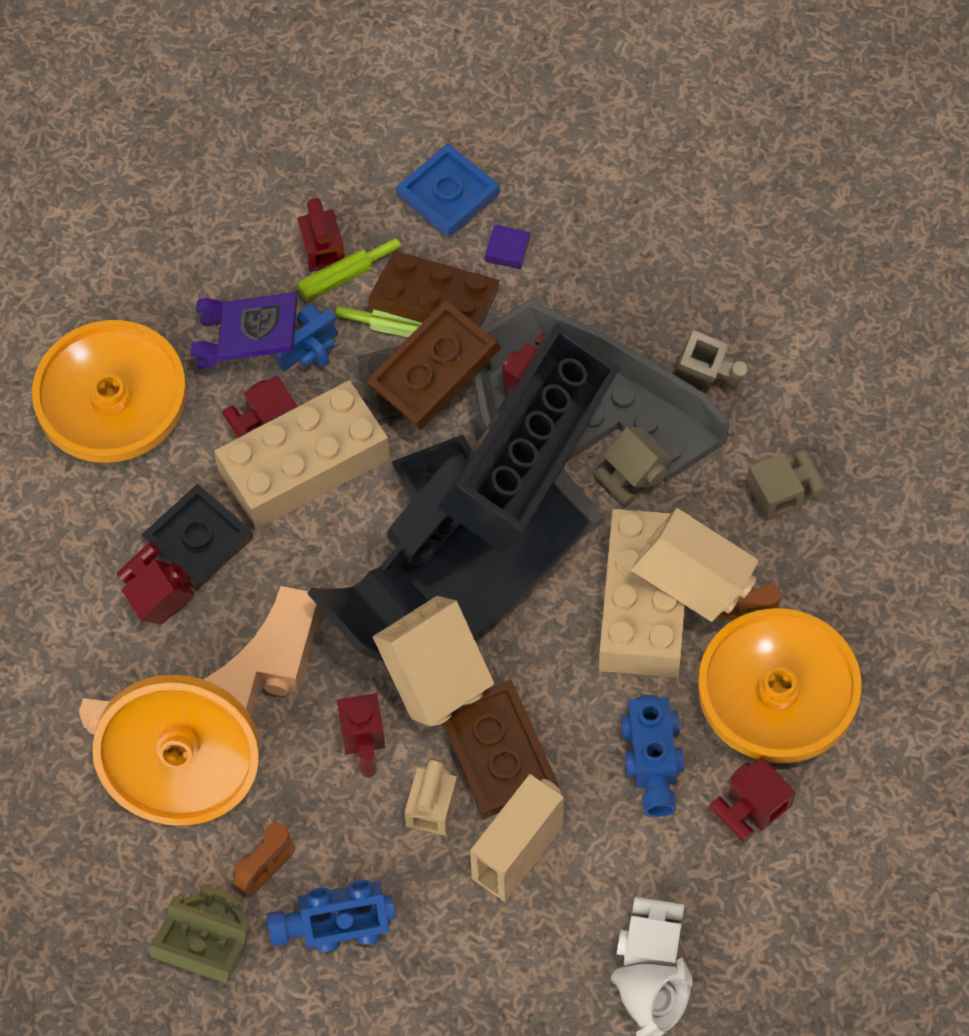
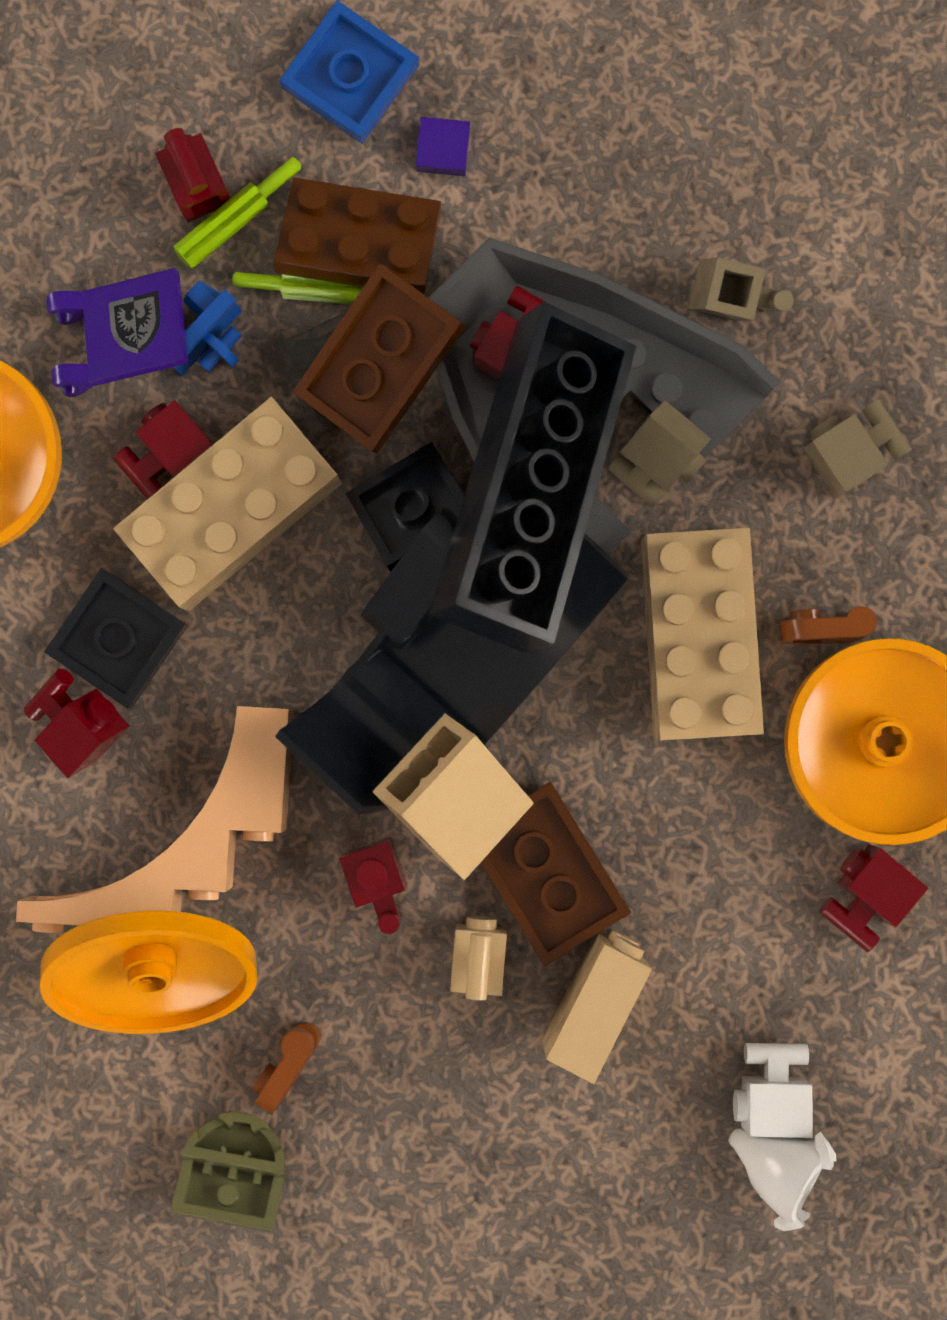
camera: 10 degrees left, 25 degrees up
(343, 916) = (390, 1123): blue brick -> none
(648, 740) = (735, 837): blue brick -> none
(696, 566) = (777, 624): tan brick -> none

